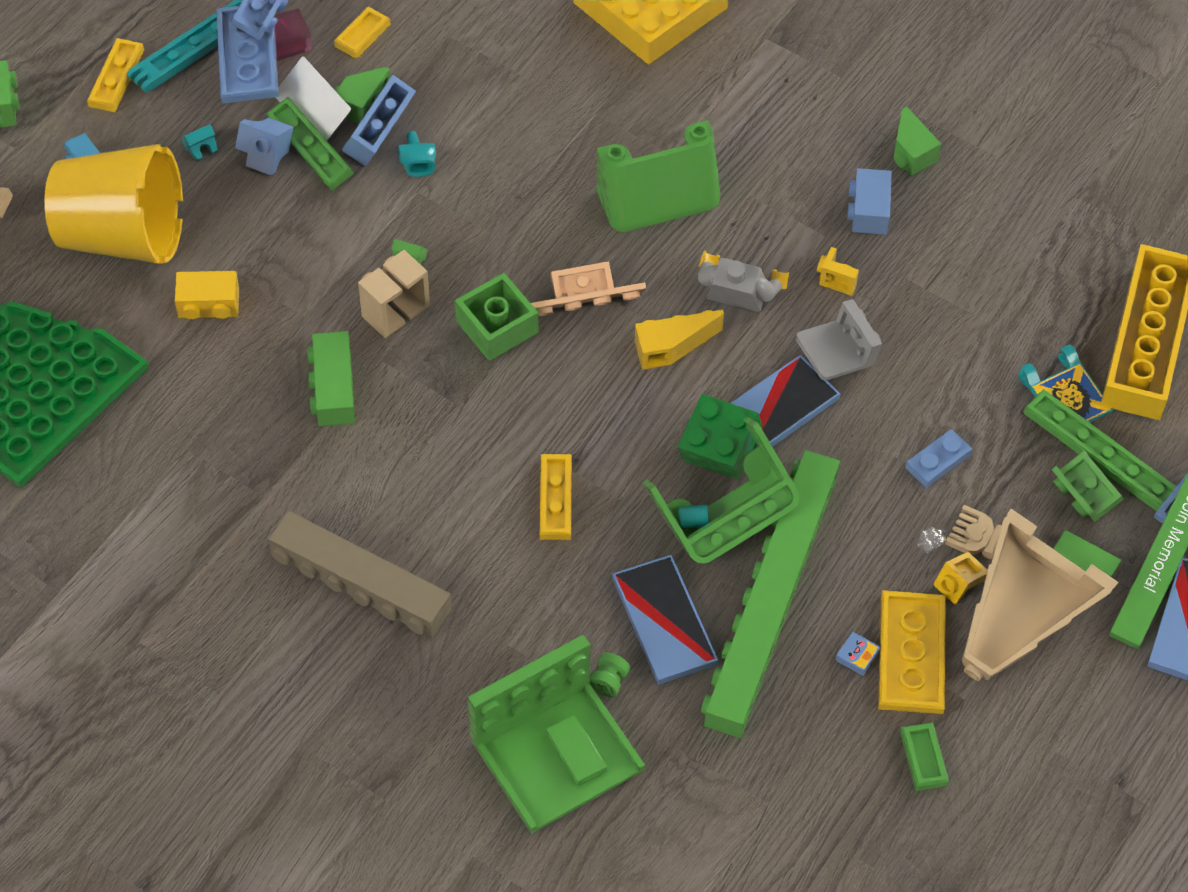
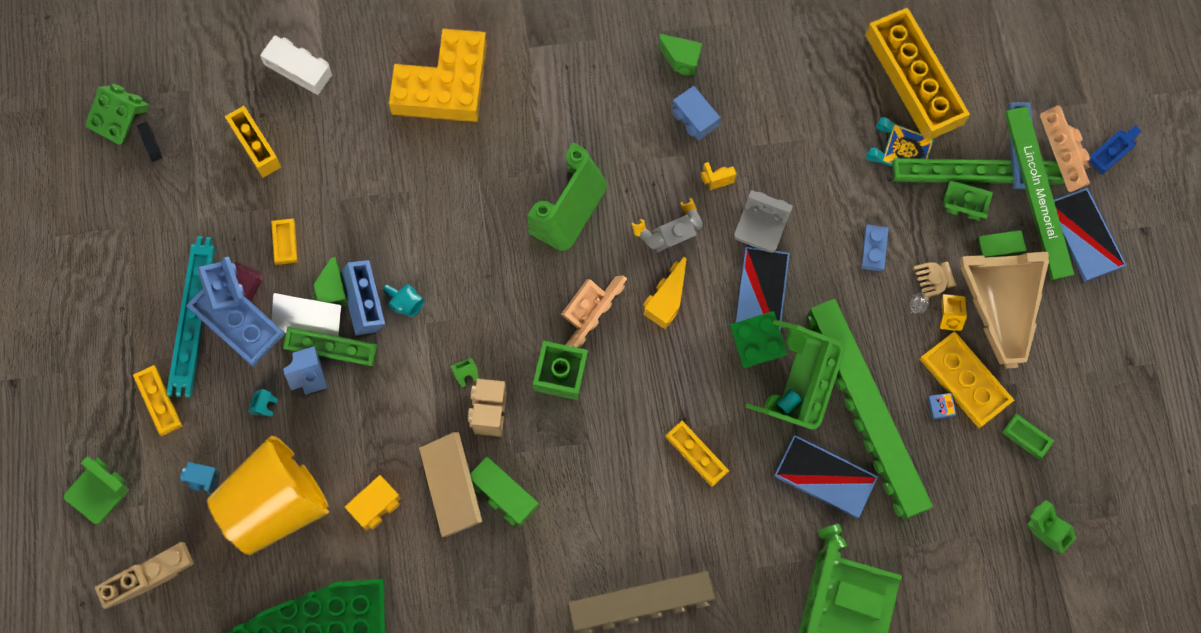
camera: 45 degrees left, 15 degrees up
(291, 331) = (450, 484): none -> tan tile
(853, 850) = (1051, 529): none -> bright green brick

